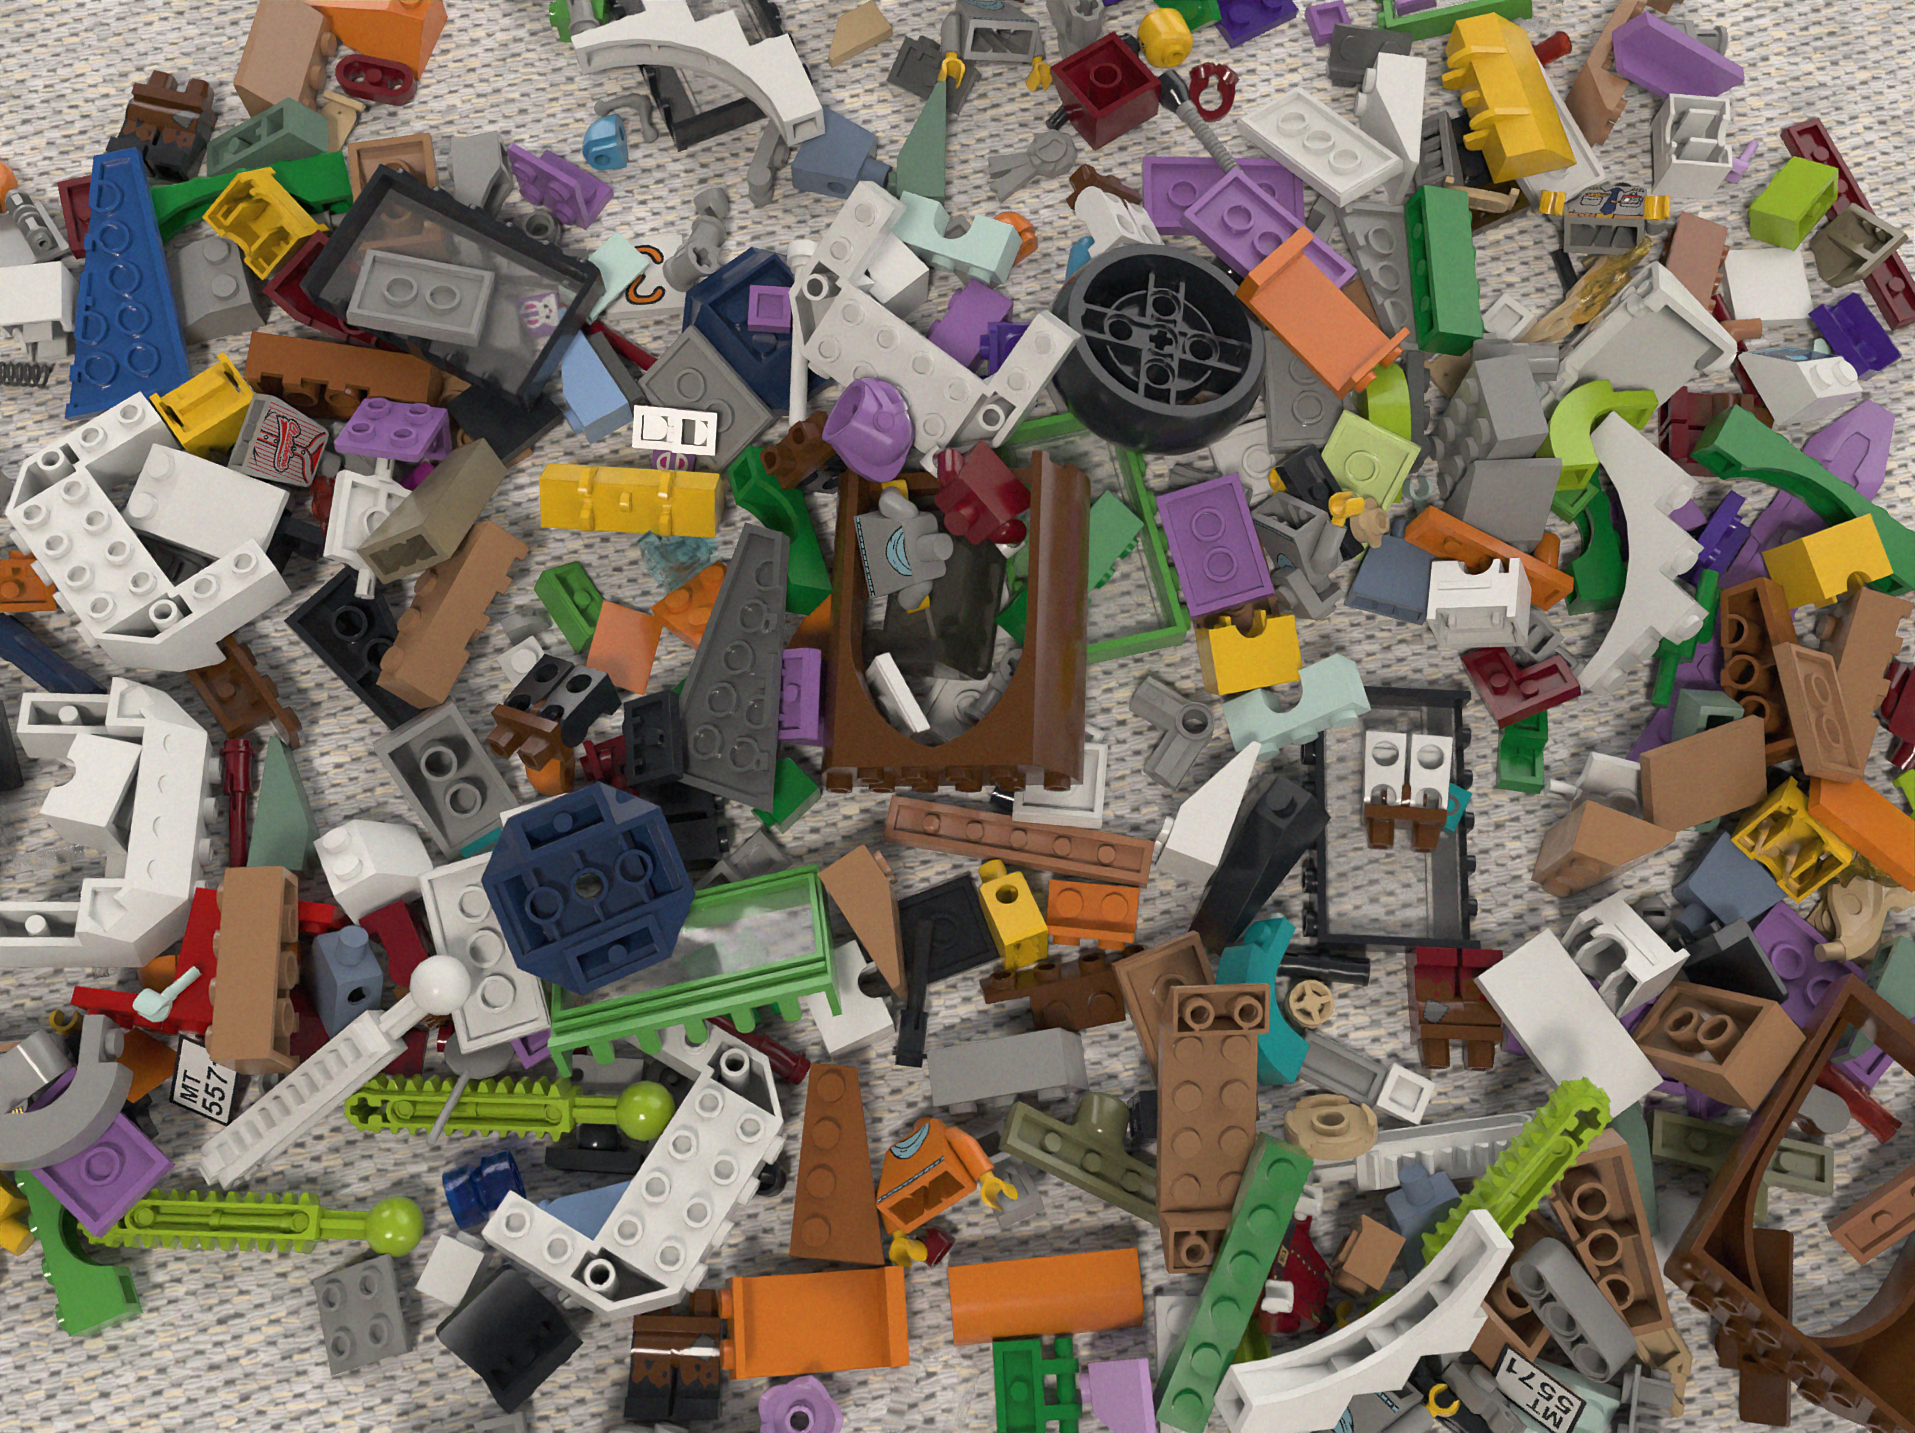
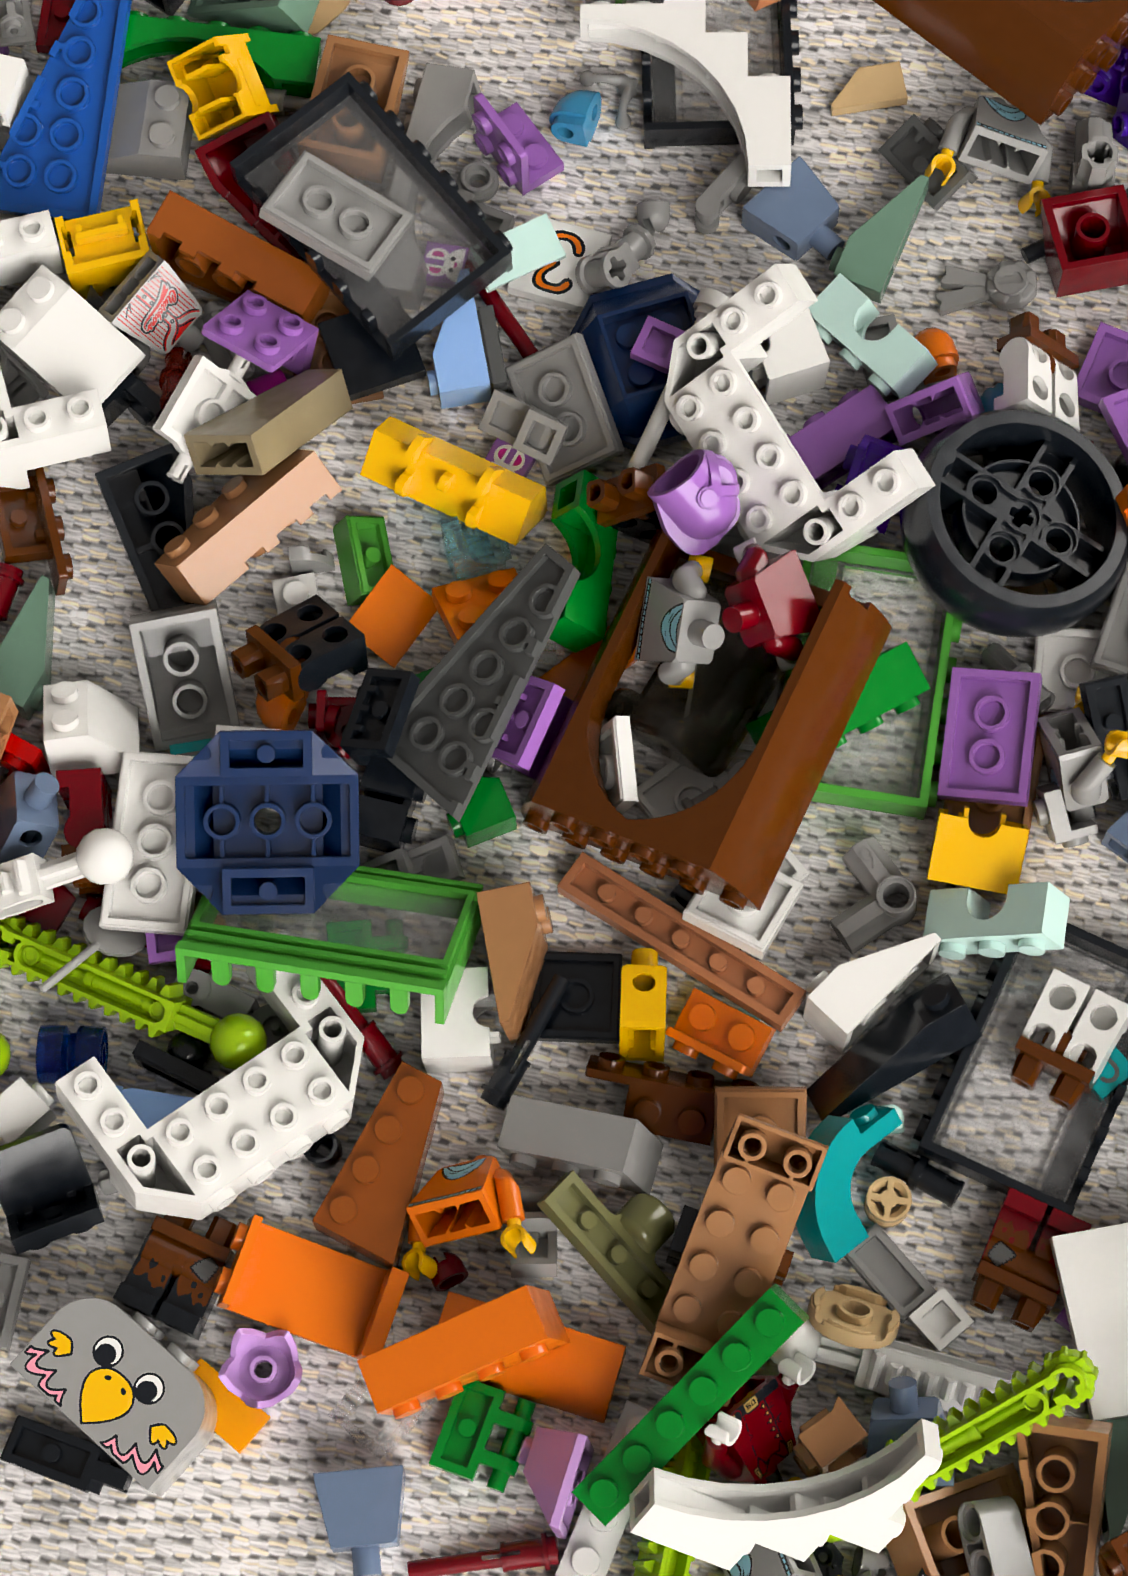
camera: 30 degrees right, 0 degrees up
(990, 1326) = (463, 1350): none -> orange wedge
(1038, 278) = (939, 407): none -> medium lavender torso

